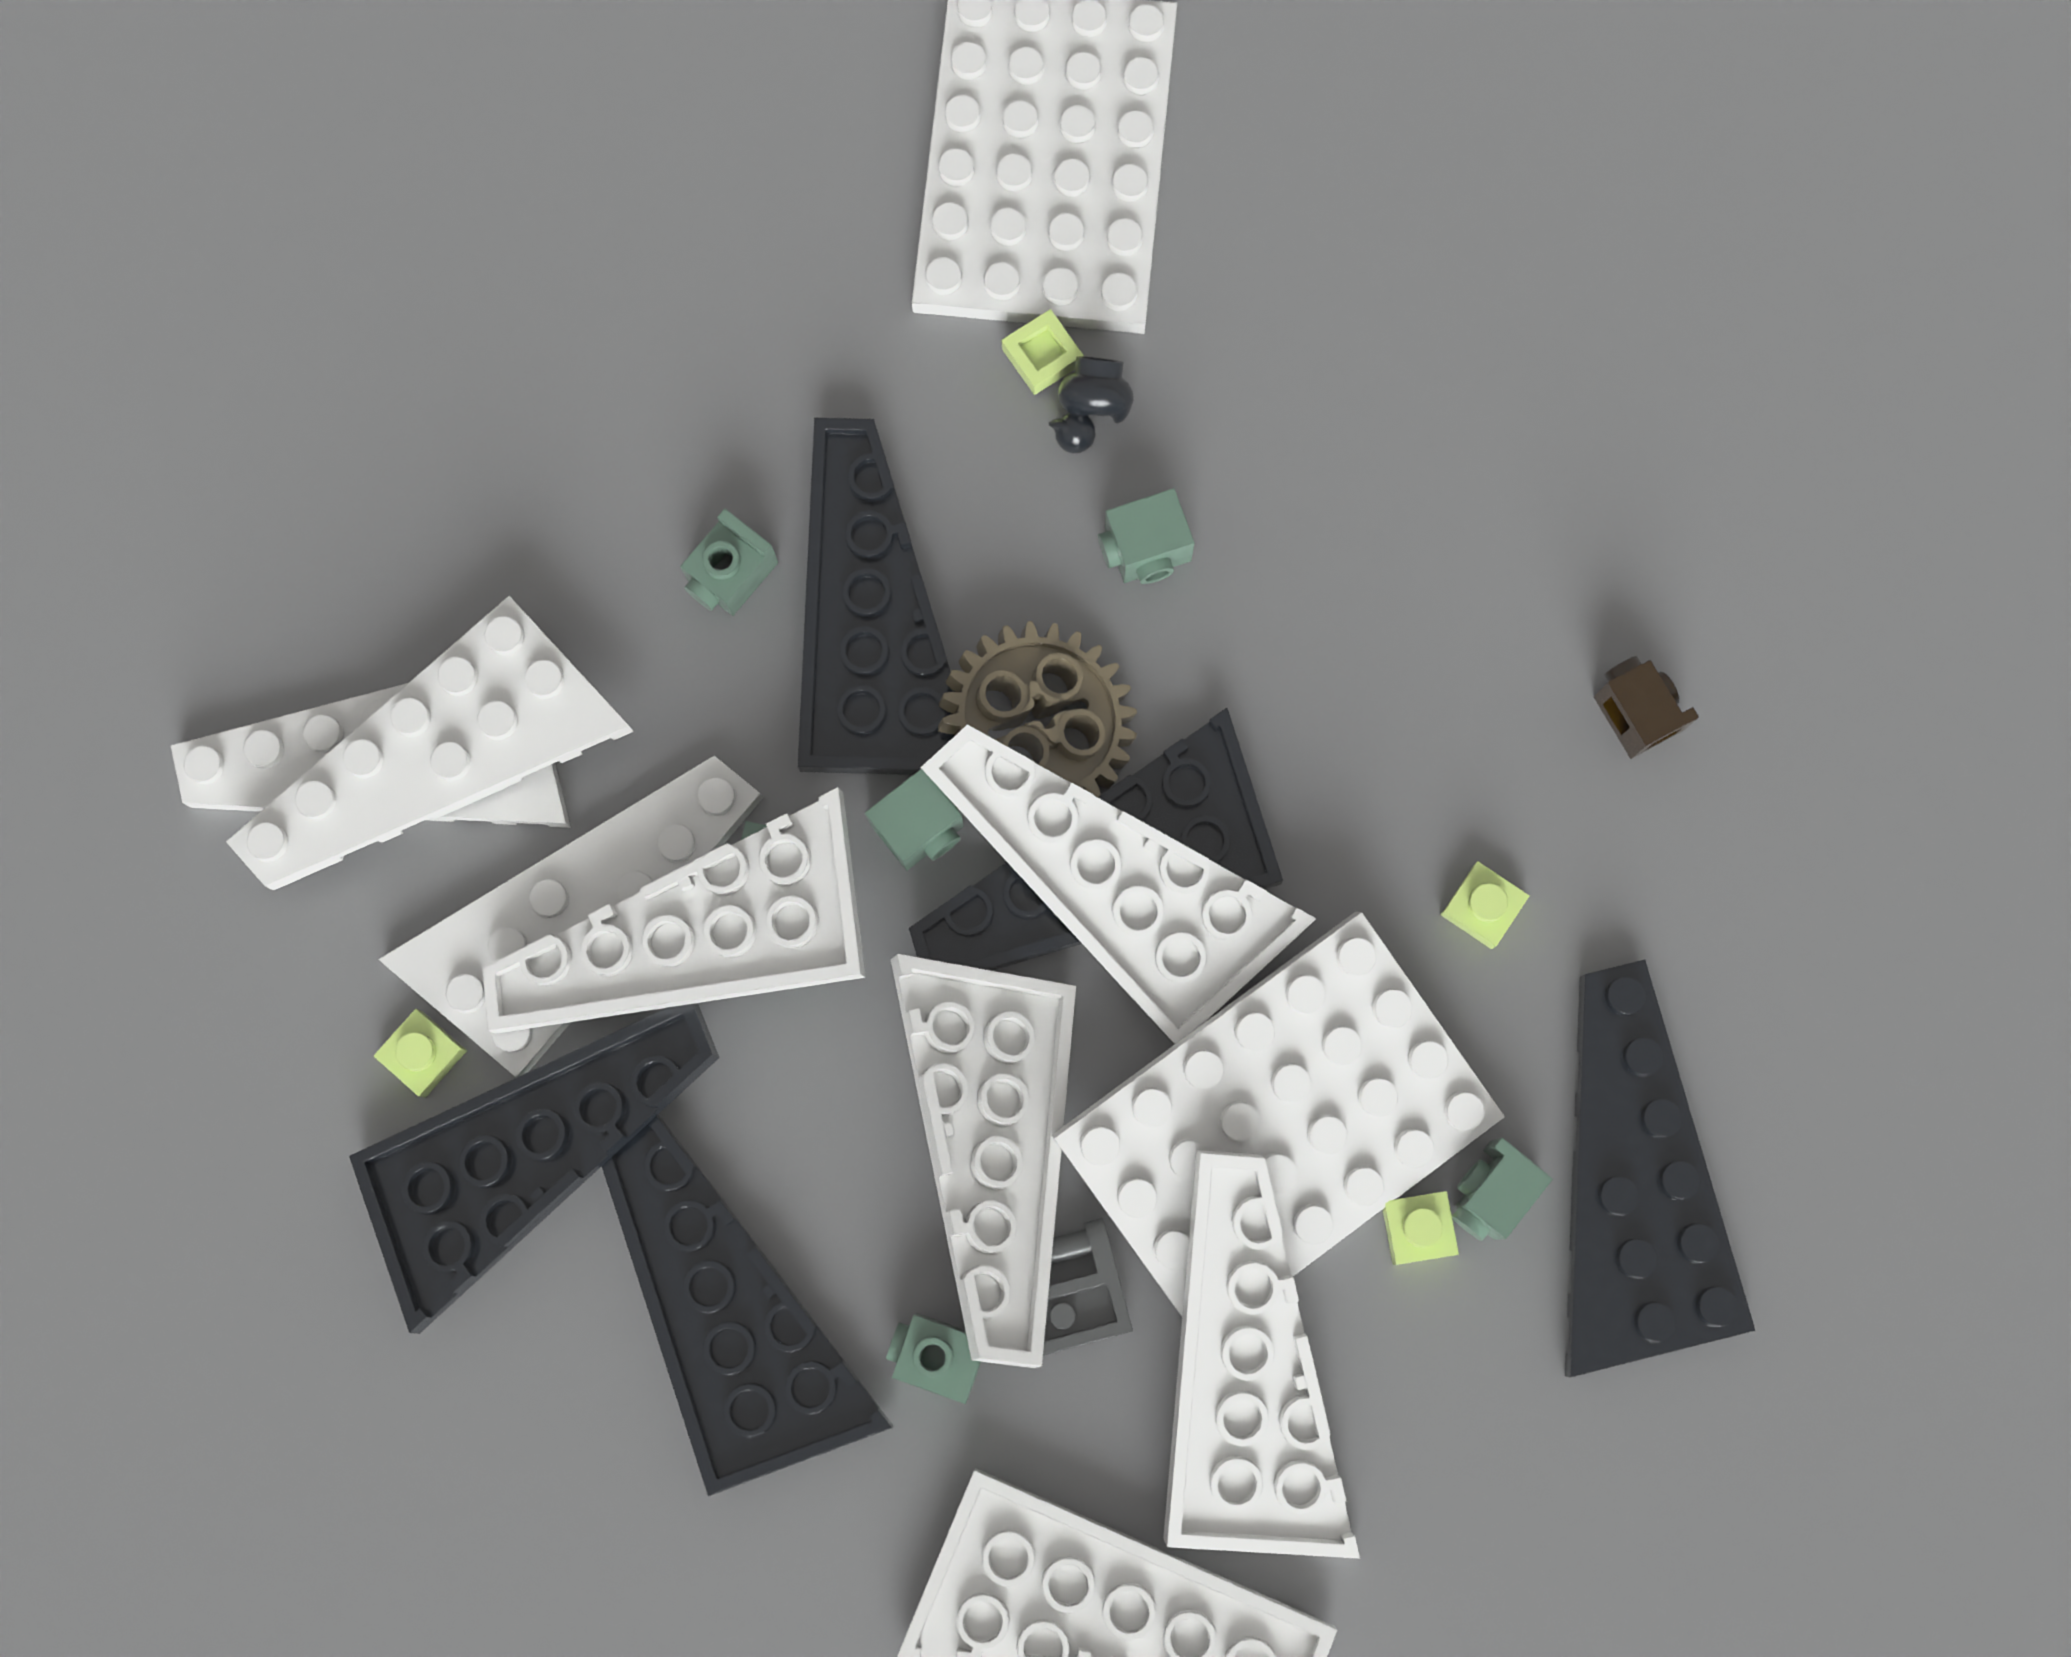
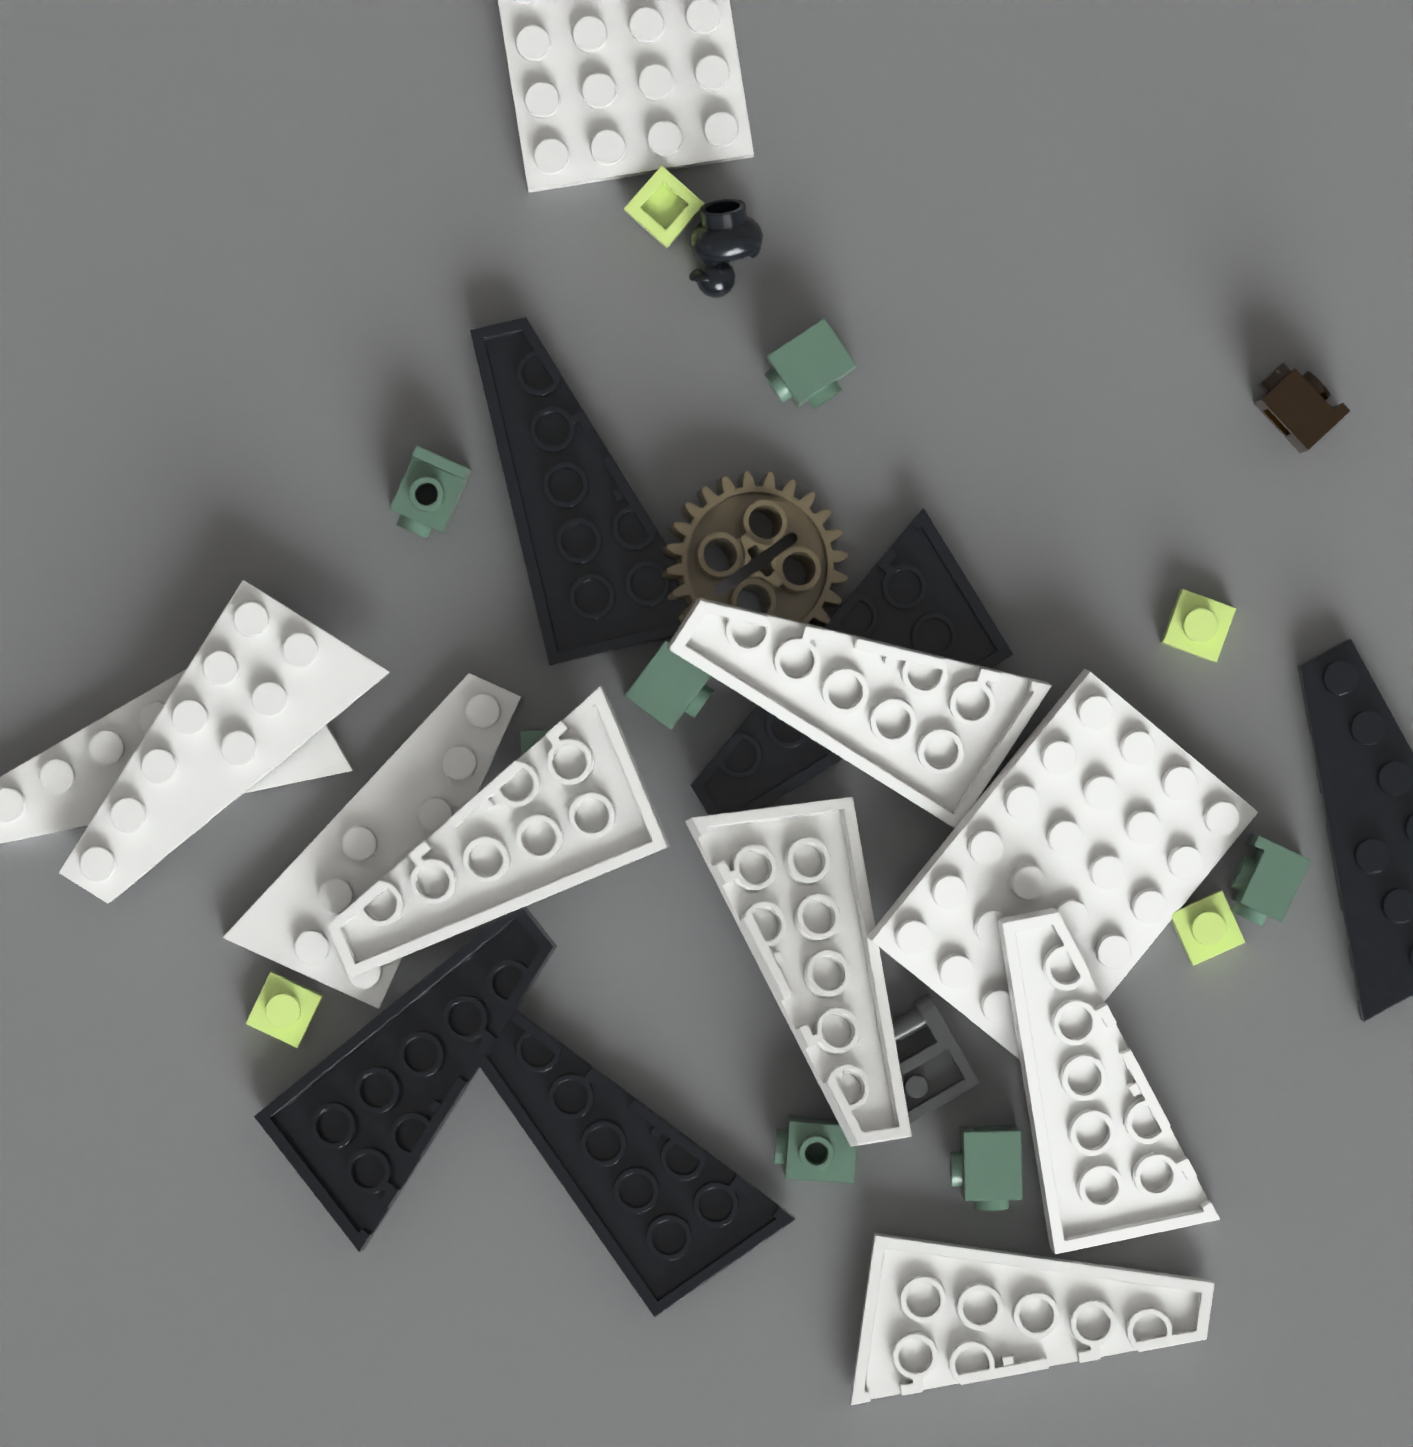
camera: 20 degrees left, 10 degrees up
(1118, 1427) = (988, 1166): none -> sand green brick

